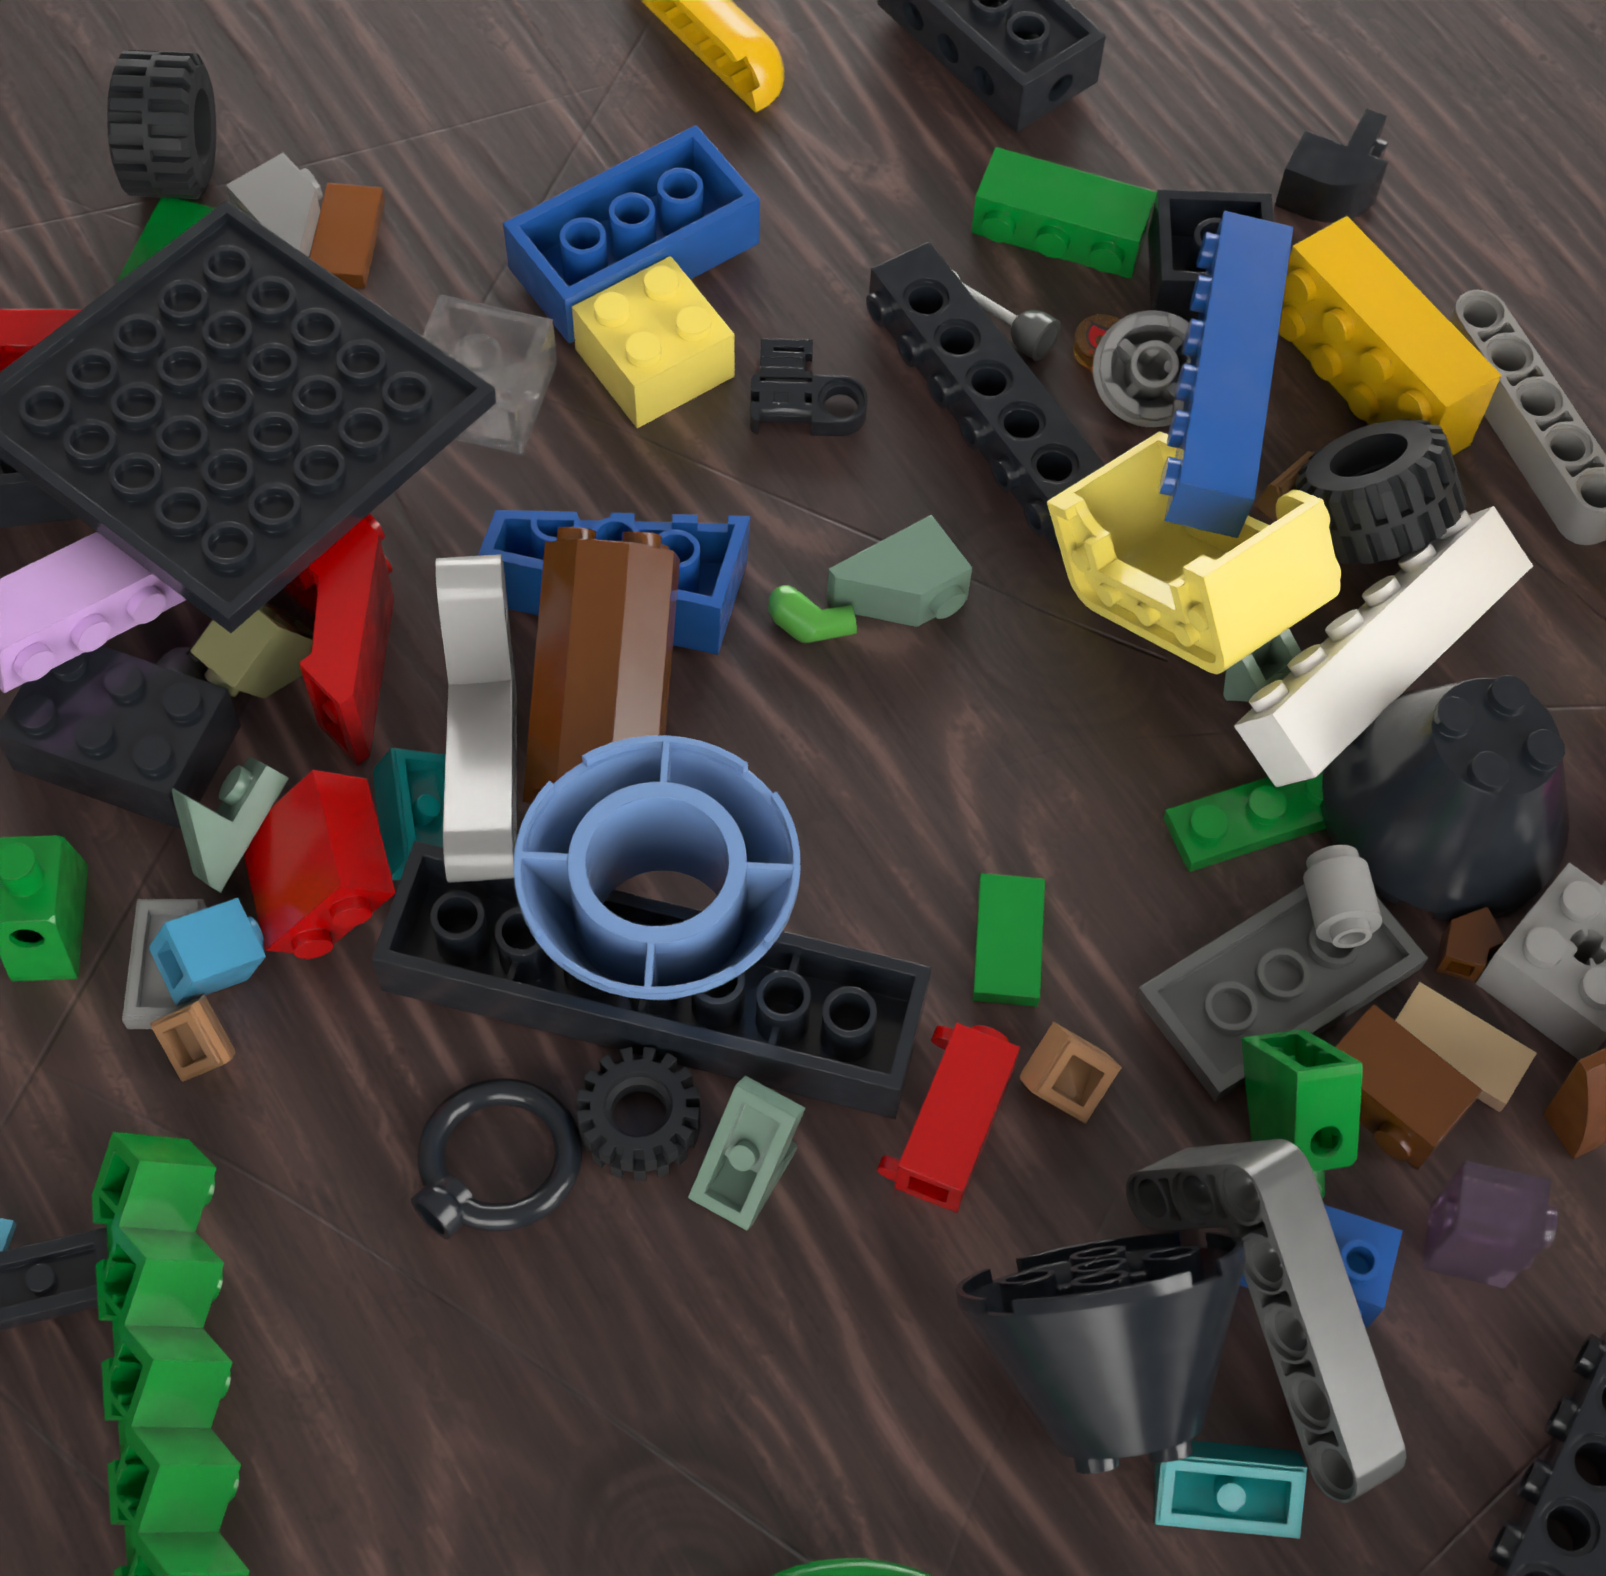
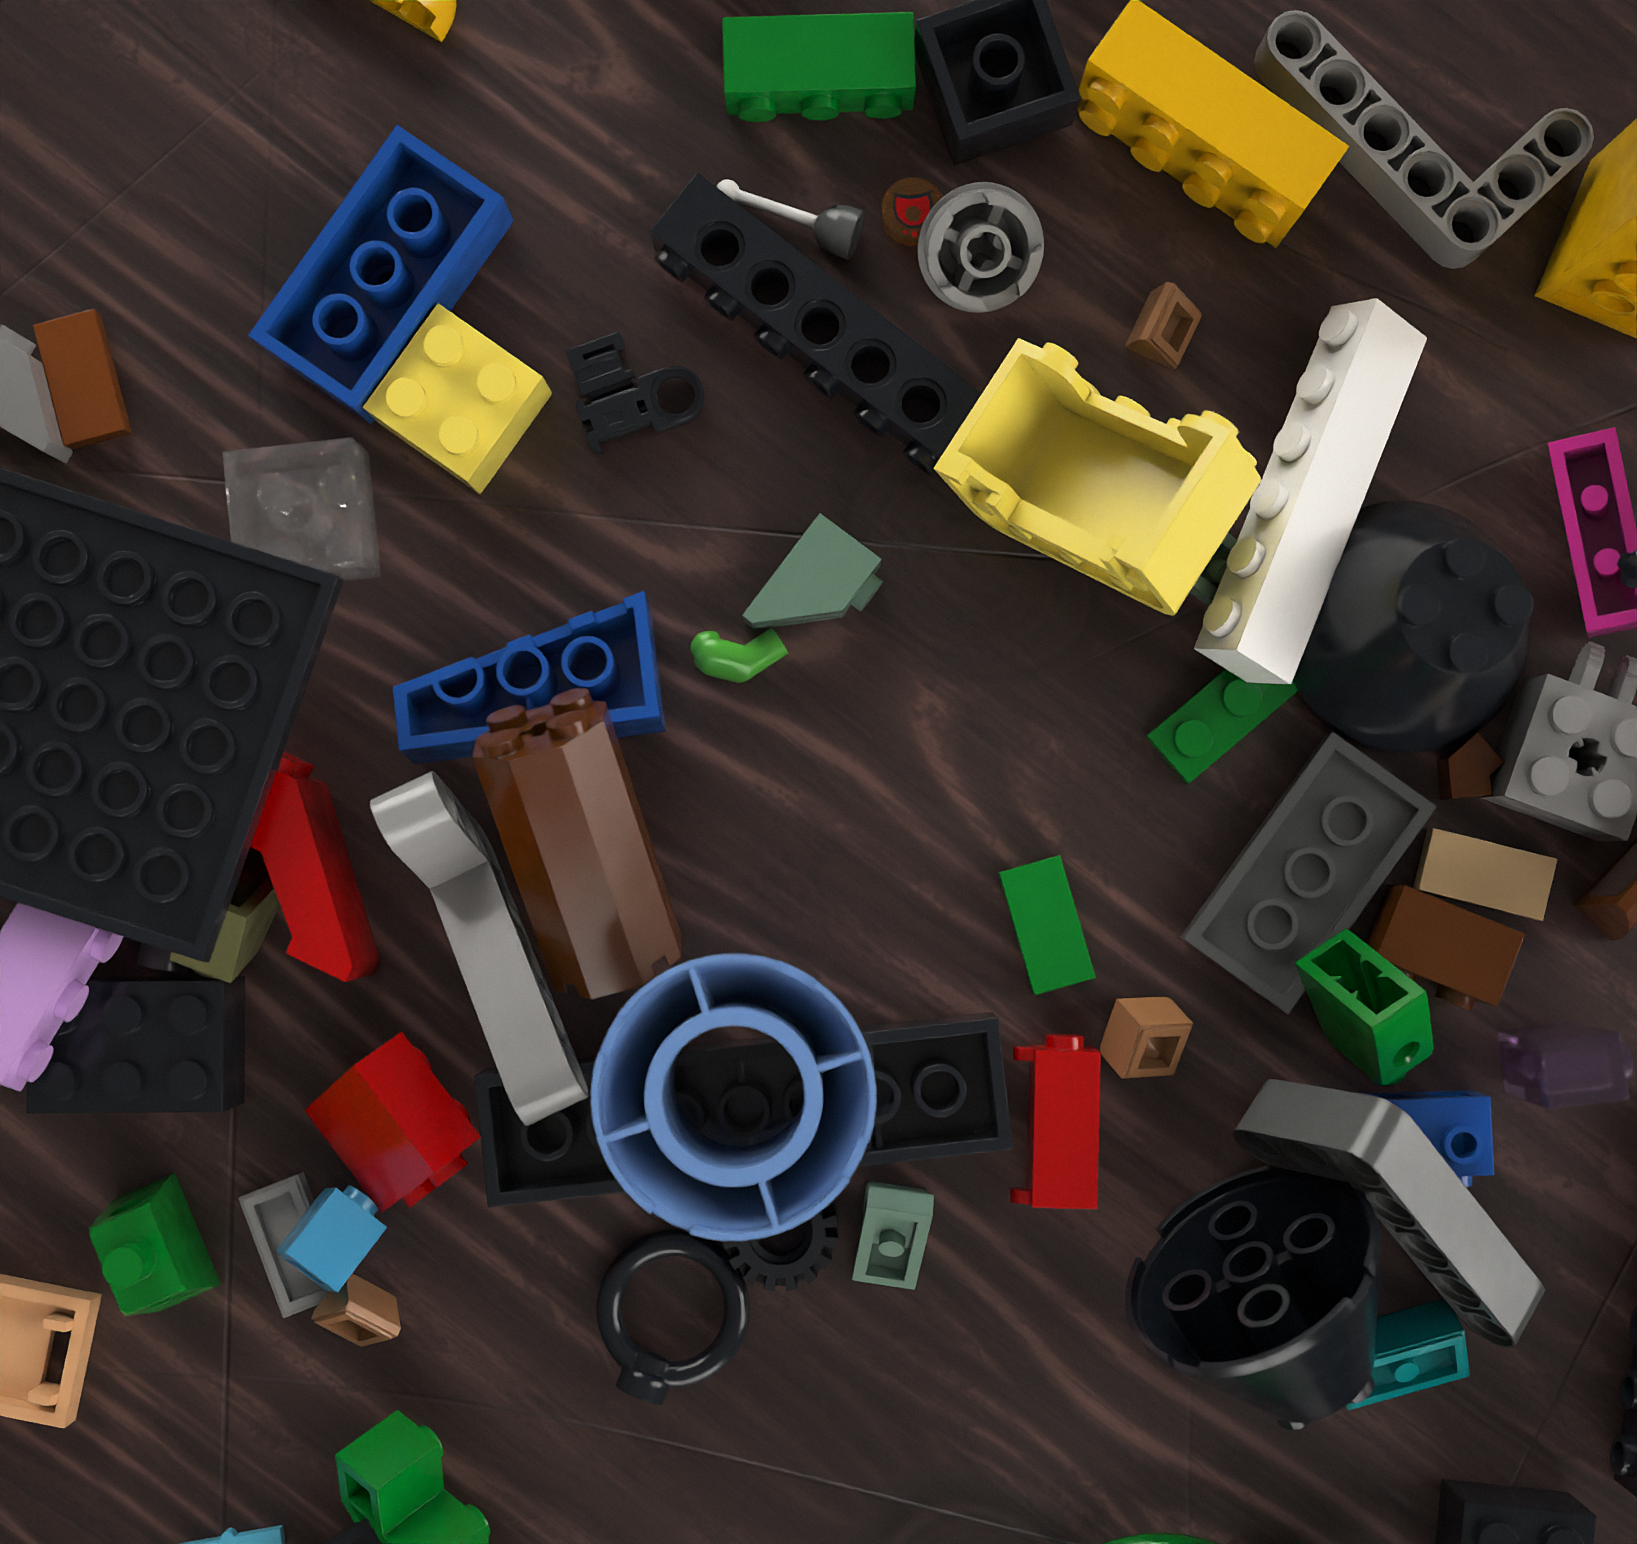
camera: 15 degrees left, 25 degrees up
(221, 837) = (292, 1115): sand green slope -> none
(409, 802) = (444, 1008): teal slope -> none
(1229, 375) = (1072, 255): blue brick -> none
(1341, 896) = (1346, 788): light grey brick -> none
(1385, 489) = (1285, 344): black tyre -> none

